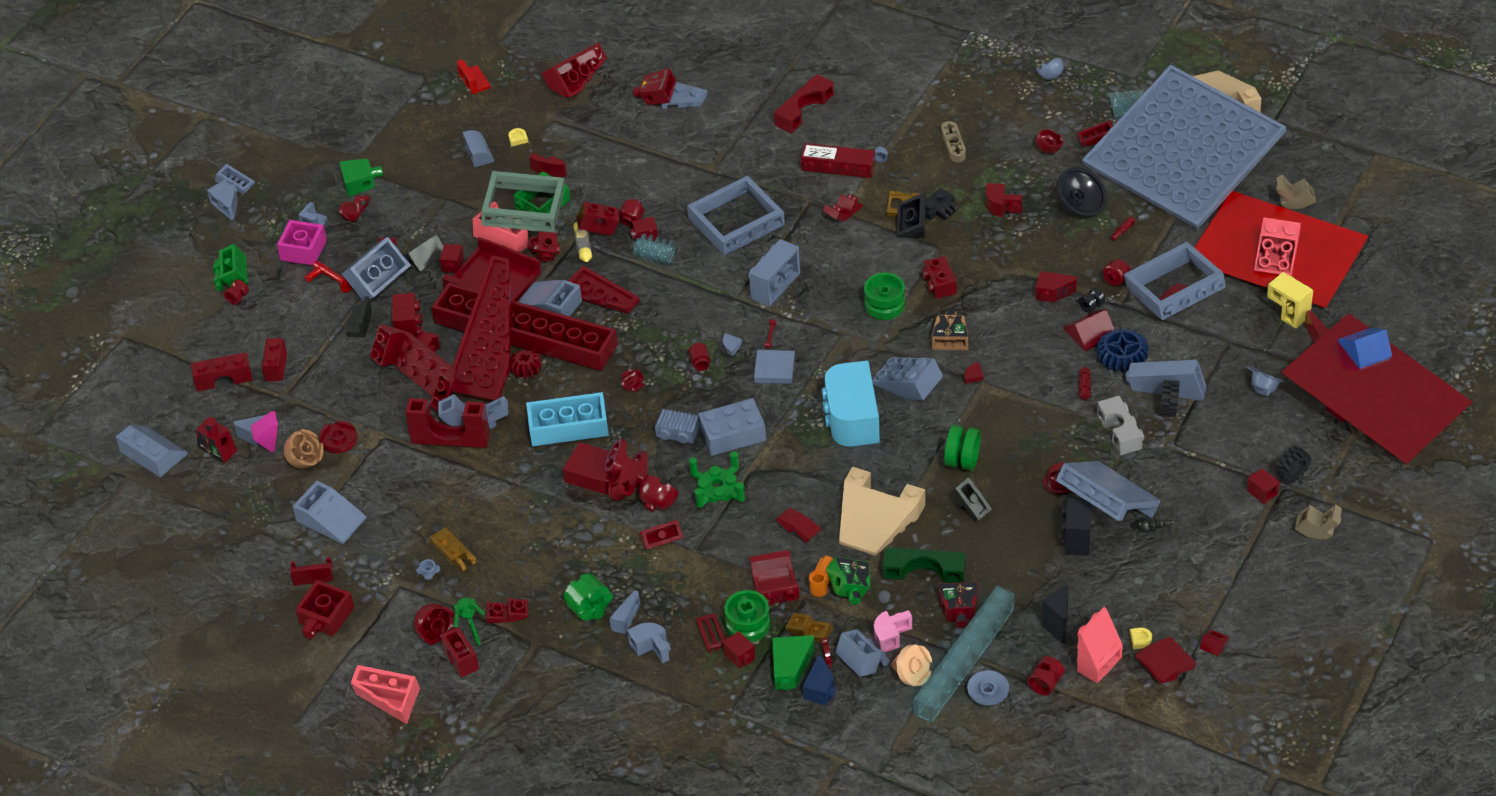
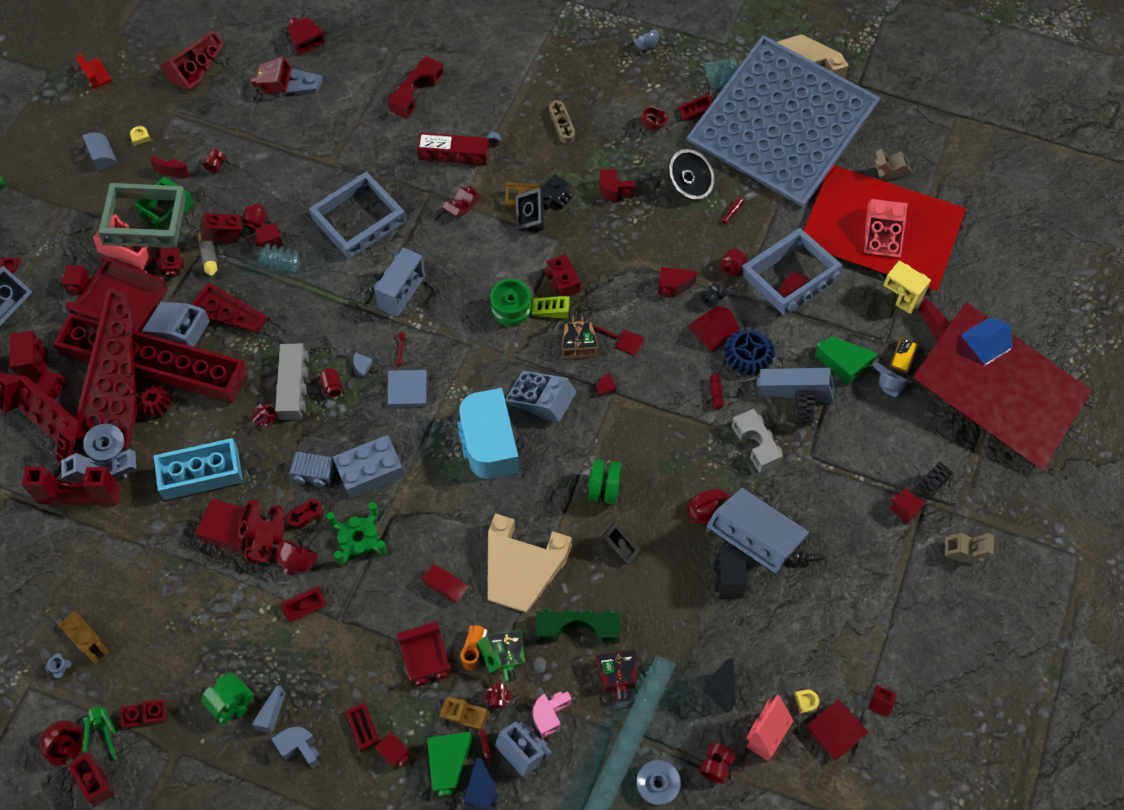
camera: 10 degrees left, 15 degrees up
(425, 253) = (48, 274): pearl dark grey panel -> none
(478, 390) = (103, 434): none -> sand blue dish
(593, 161) = (214, 160): none -> dark red wheel
(660, 354) = (291, 381): none -> light grey brick
(667, 464) = (304, 514): none -> dark red beam
(692, 51) = (305, 35): none -> dark red torso
(747, 613) = (393, 697): green wheel -> none
(842, 613) = (498, 696): none -> dark red gear
(913, 665) = (577, 762): light nougat tile -> none
(931, 304) = (551, 301): none -> lime slope
(1000, 338) = (627, 341): none -> dark red piece
(1220, 361) = (844, 358): none -> green slope
(1279, 361) = (903, 356): none -> slope

